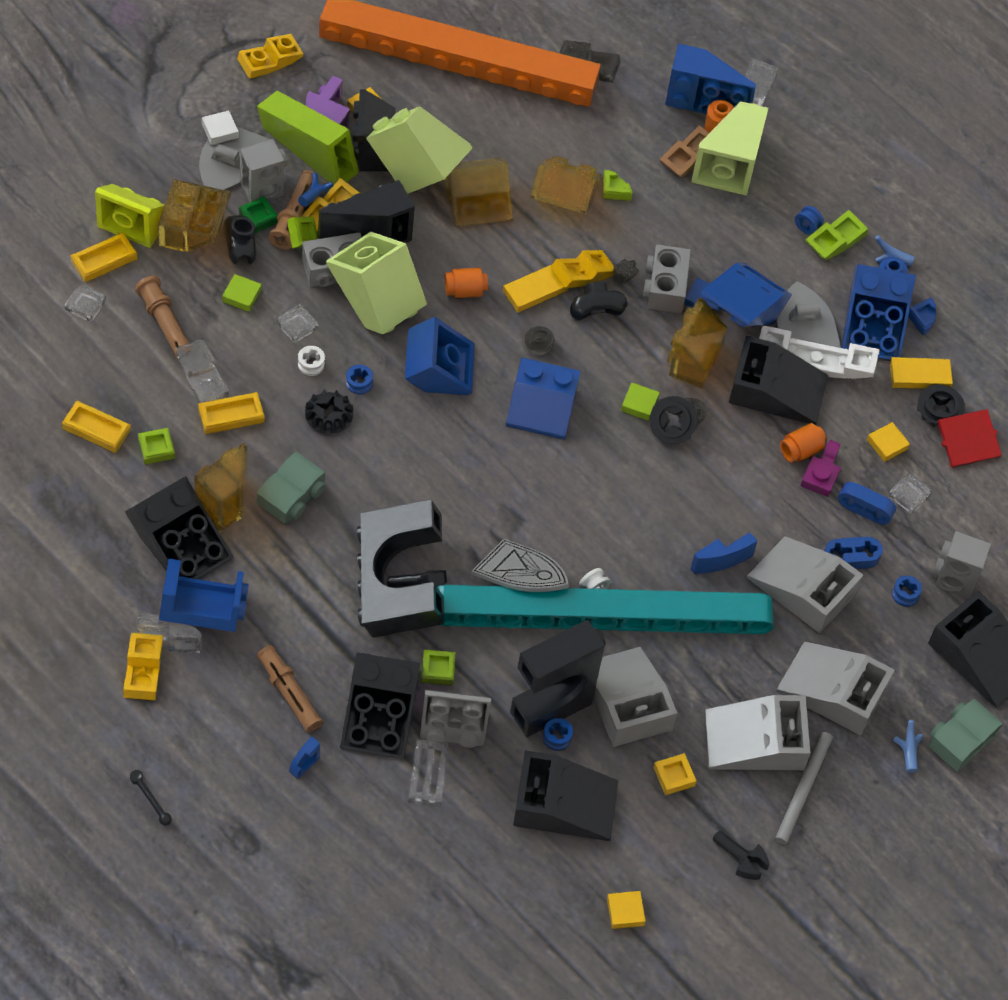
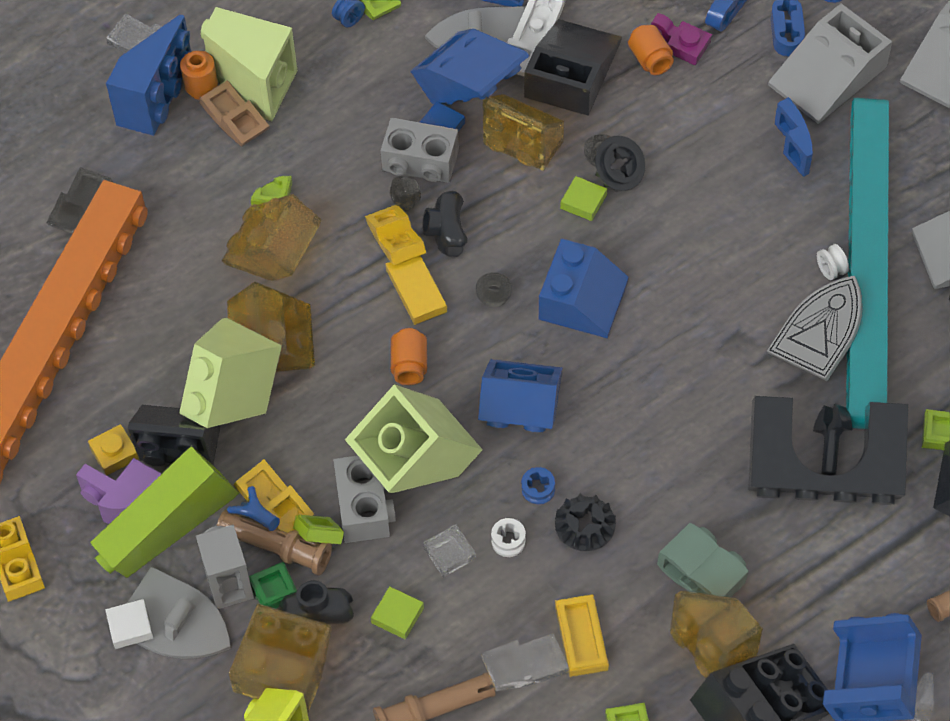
camera: 75 degrees left, 0 degrees up
(380, 211) = (313, 437): black slope -> none

